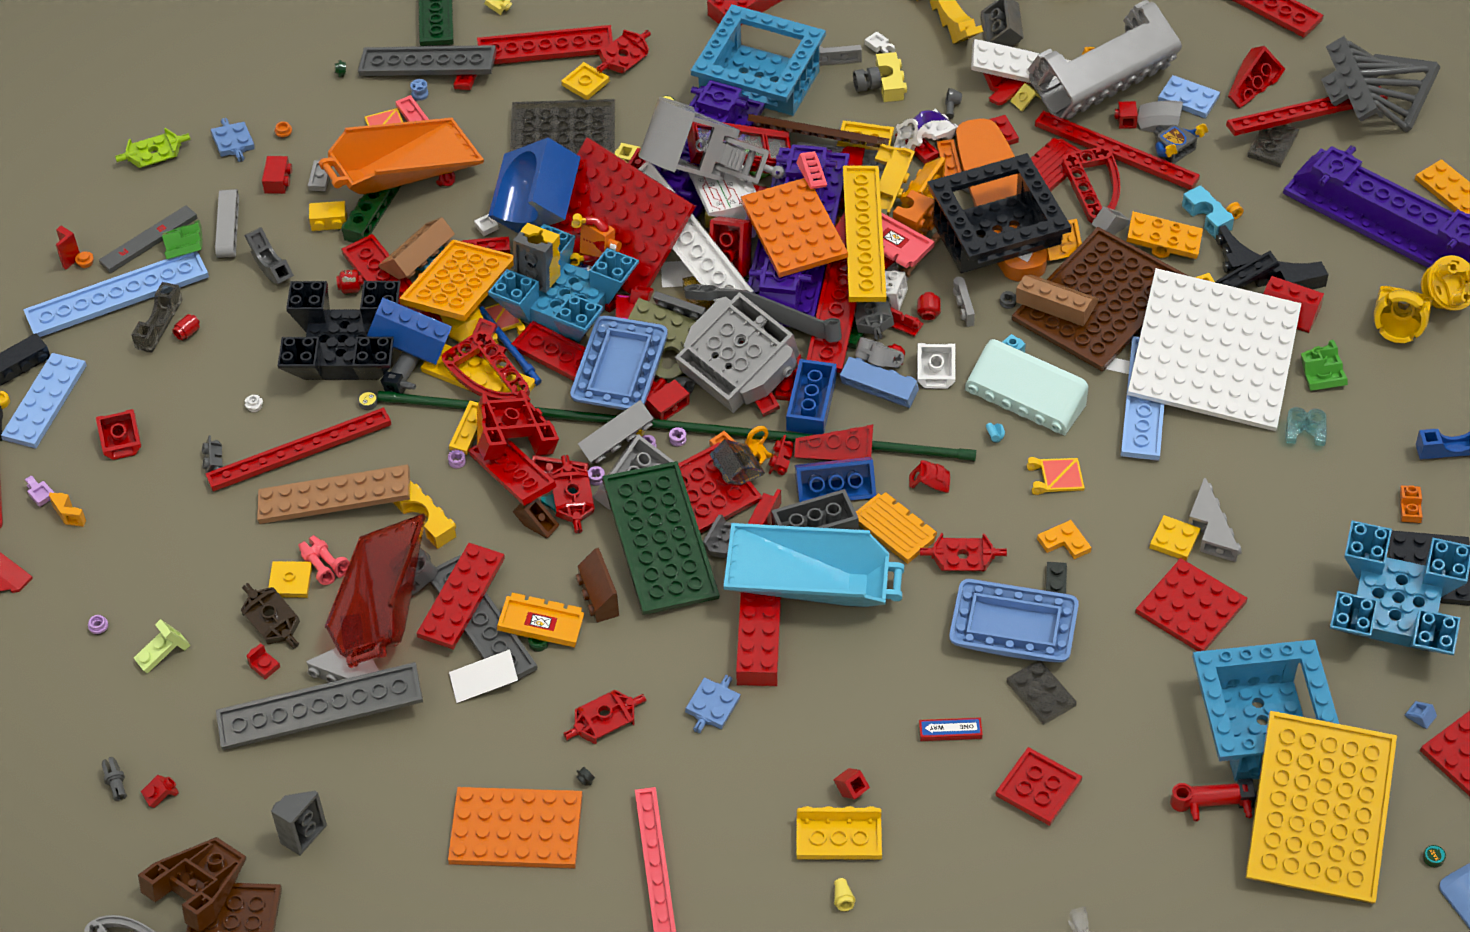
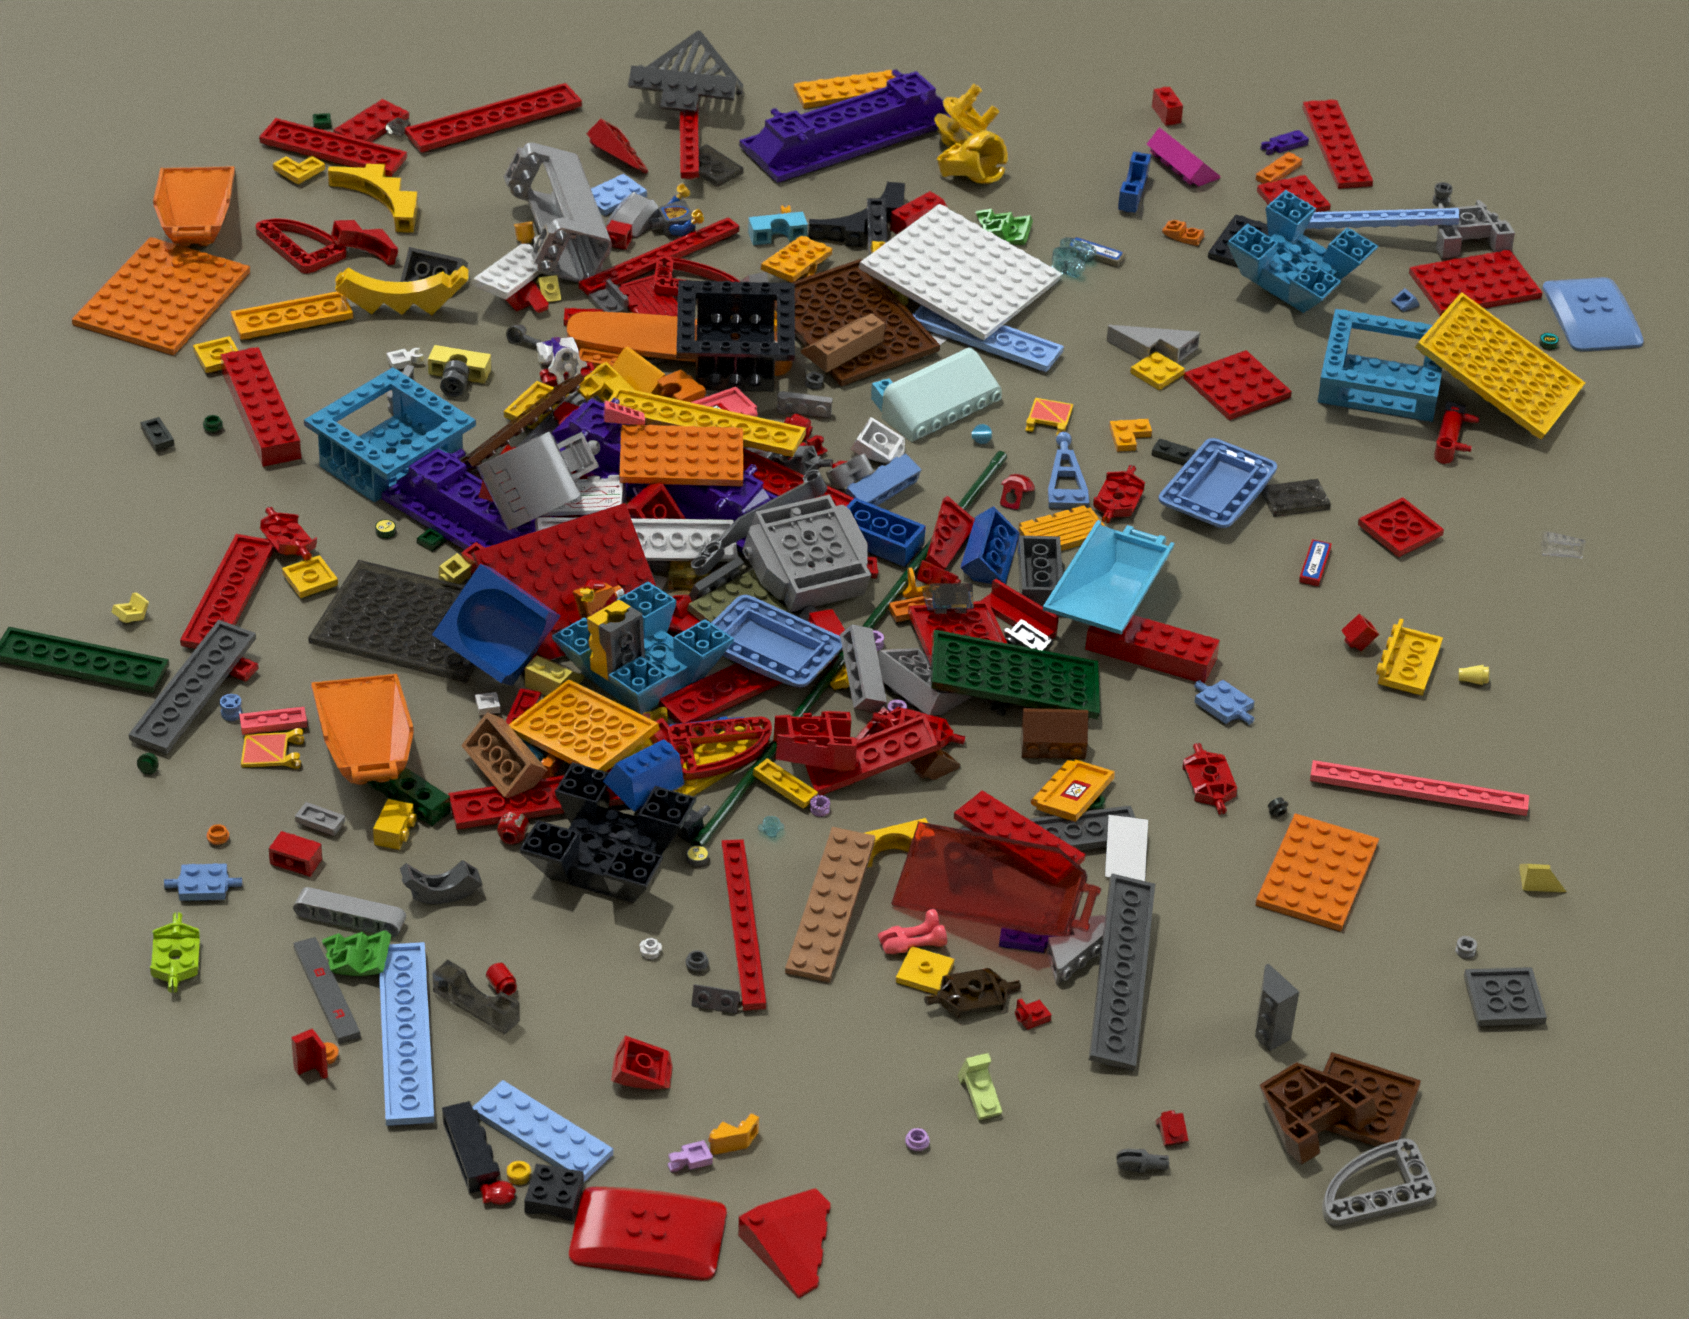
camera: 75 degrees left, 10 degrees down
(248, 434) = (697, 961): none -> dark grey plate
(418, 435) = (771, 826): none -> clear light blue plate
(945, 523) = (1067, 497): none -> medium blue plate
(1033, 139) = (610, 299): none -> flat silver bracket
(1335, 445) = (1104, 253): none -> tile

